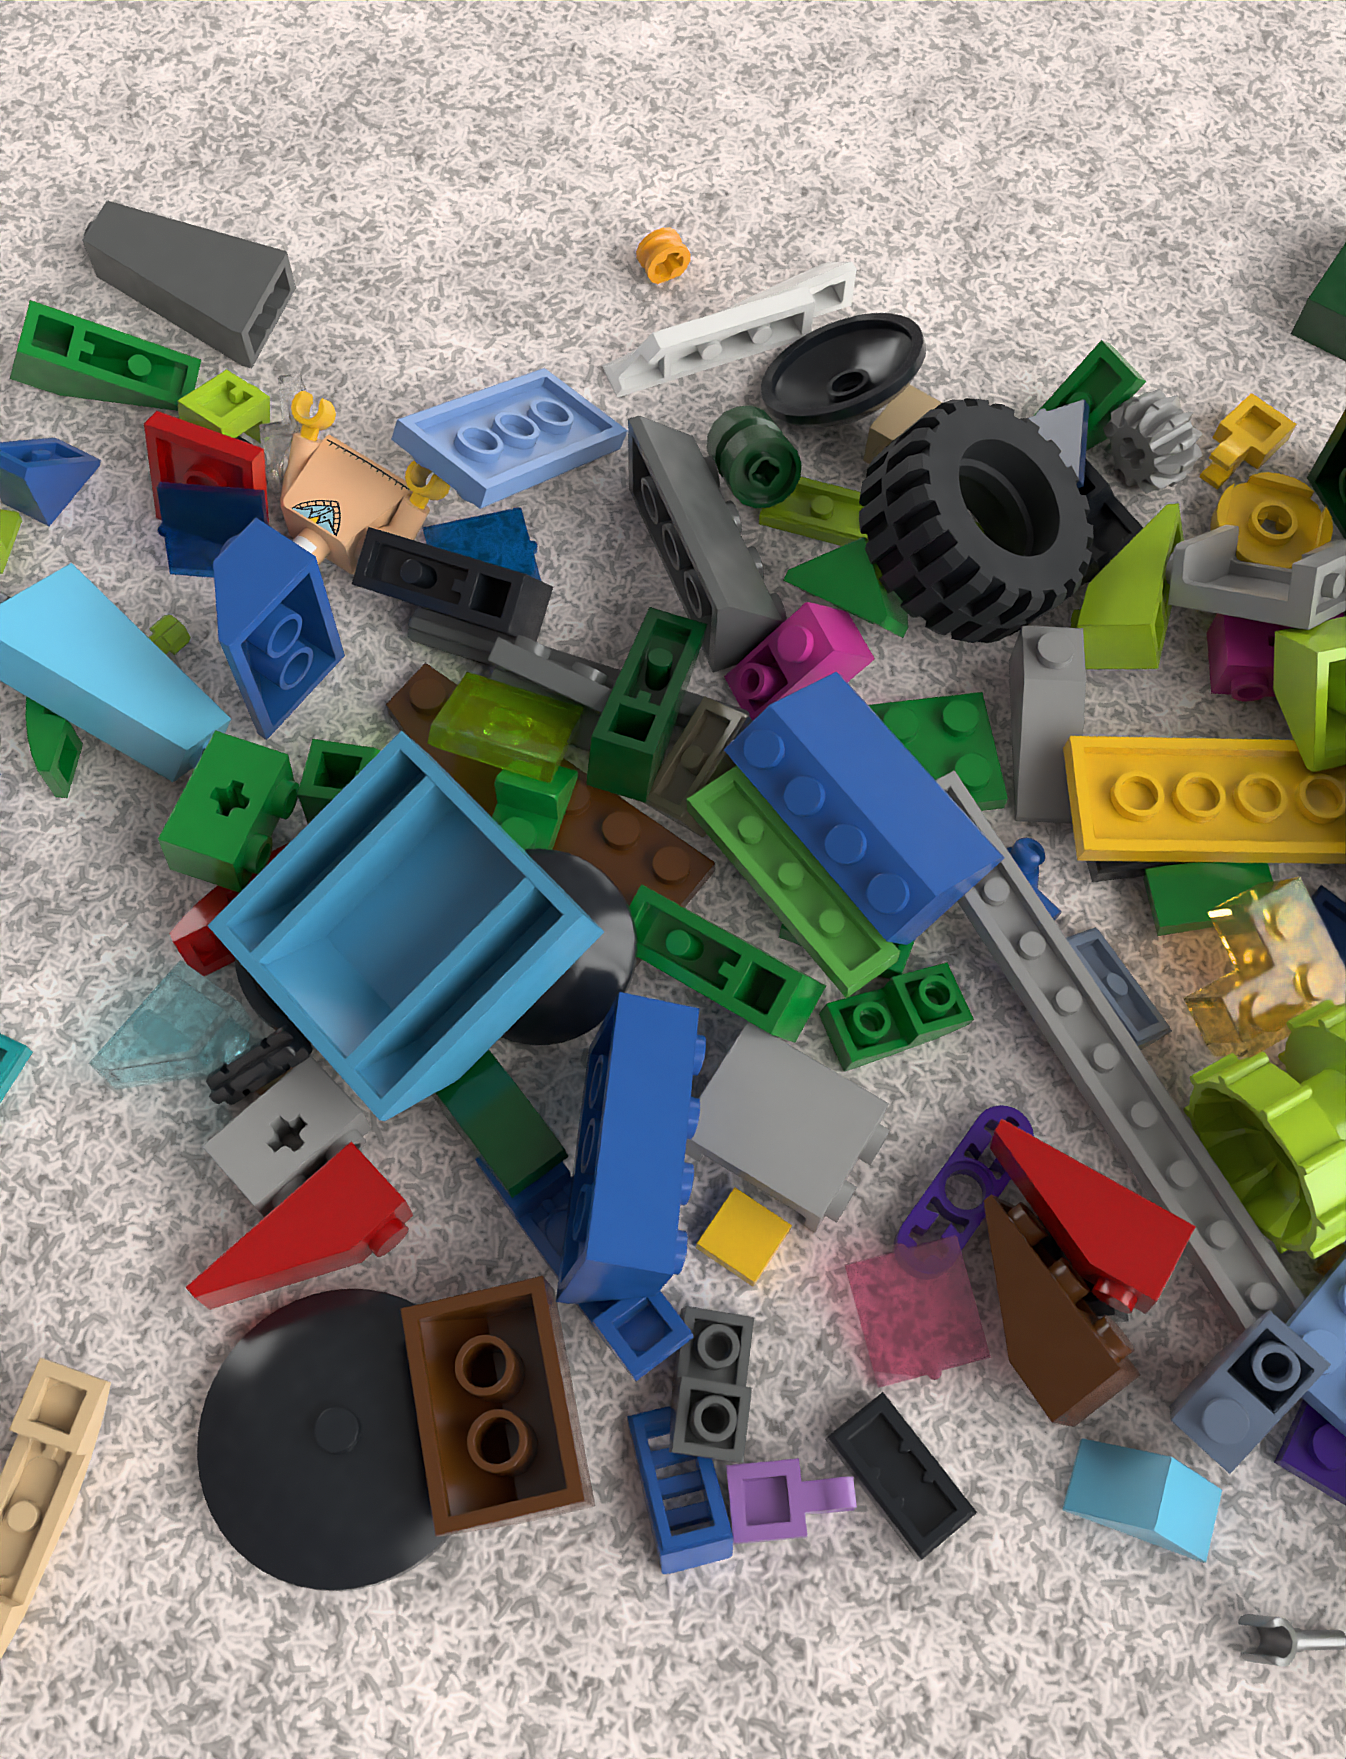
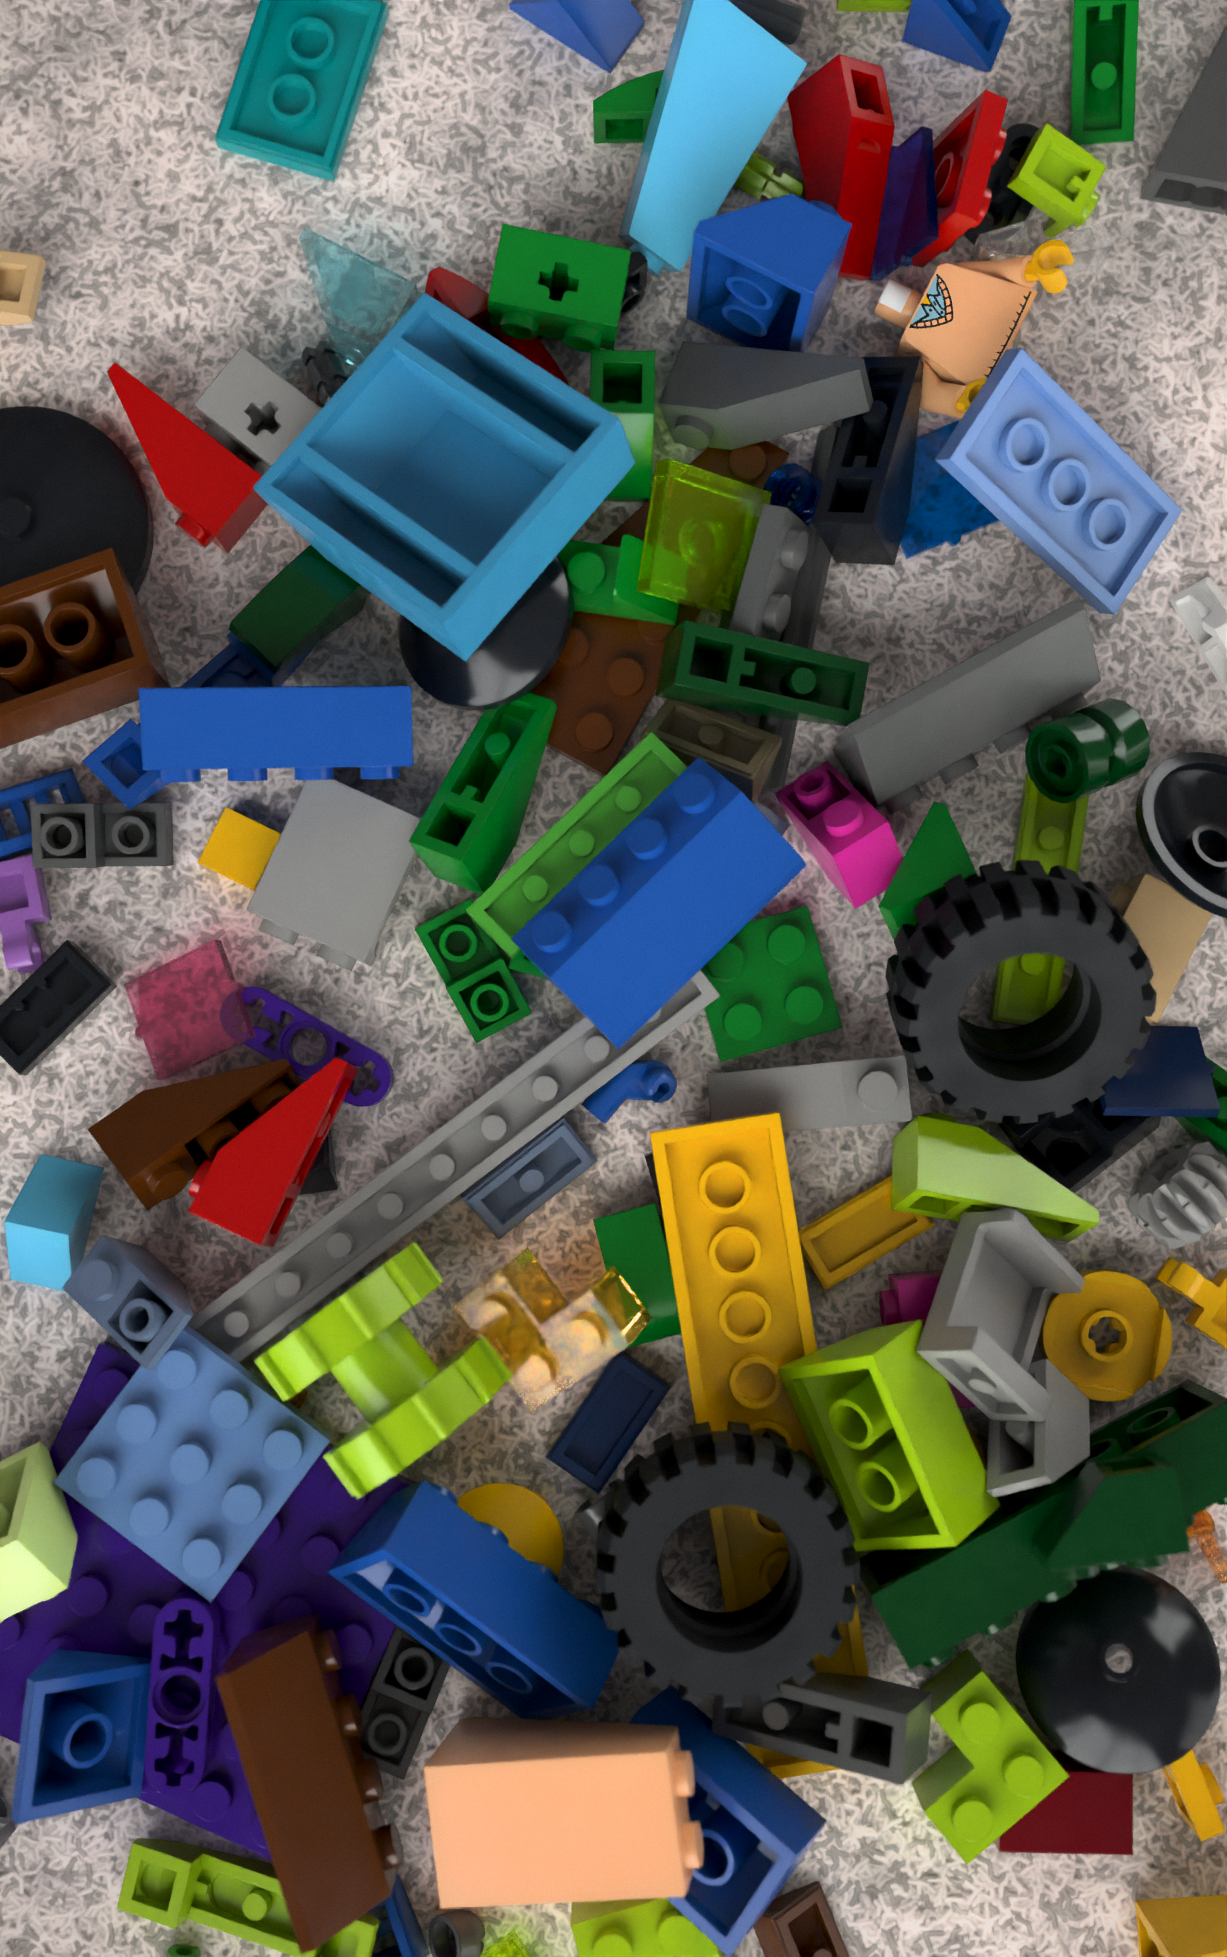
camera: 85 degrees right, 20 degrees up
(144, 568) = (845, 149): none -> red slope
(369, 673) = (755, 394): none -> dark grey slope
(457, 646) = (785, 482): none -> clear blue bush
(1169, 700) = (857, 1233): none -> yellow tile

